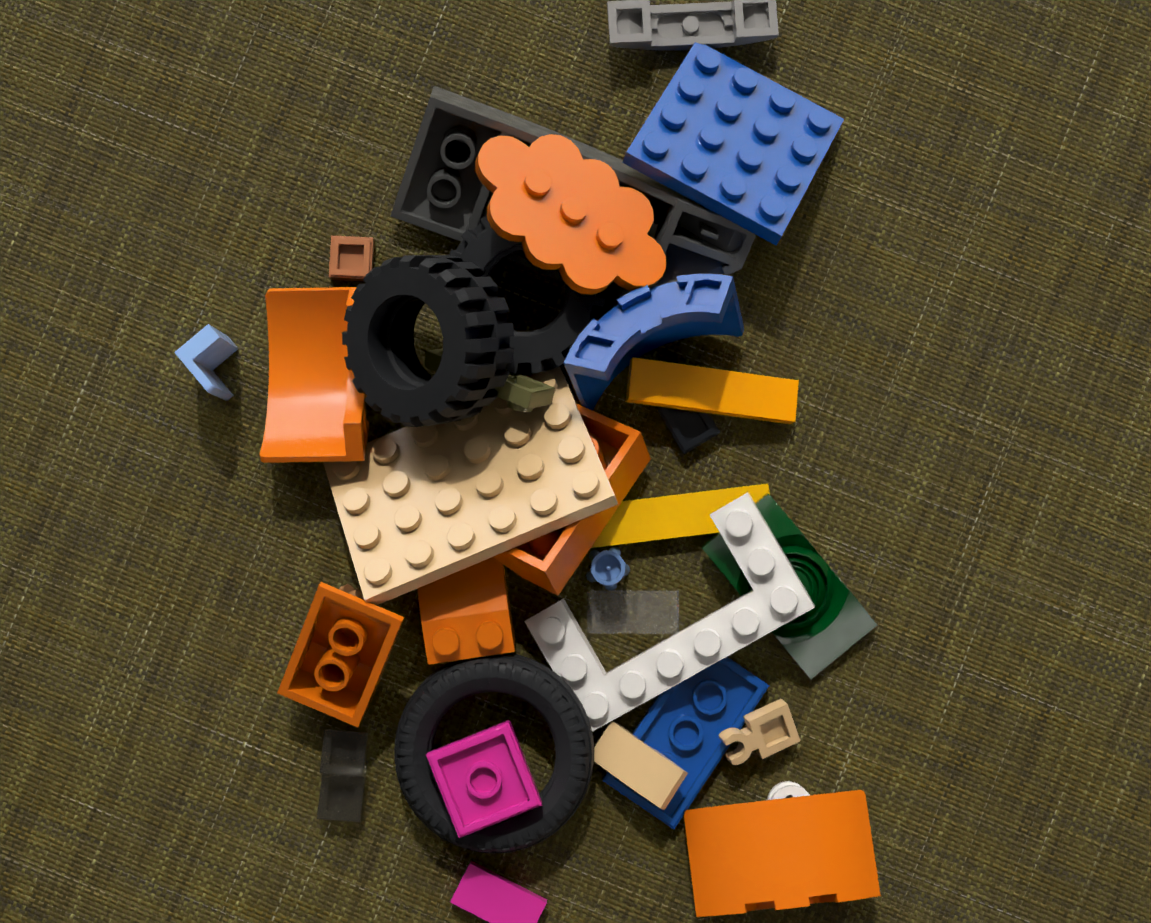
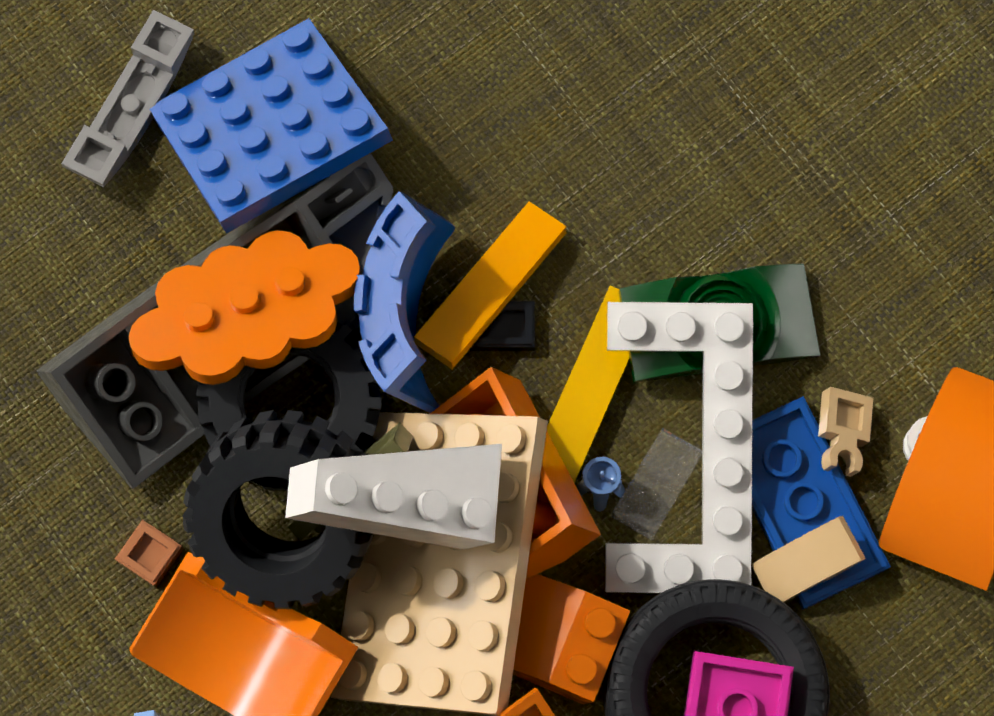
camera: 60 degrees left, 10 degrees down
(489, 437) = (410, 495): none -> white wedge

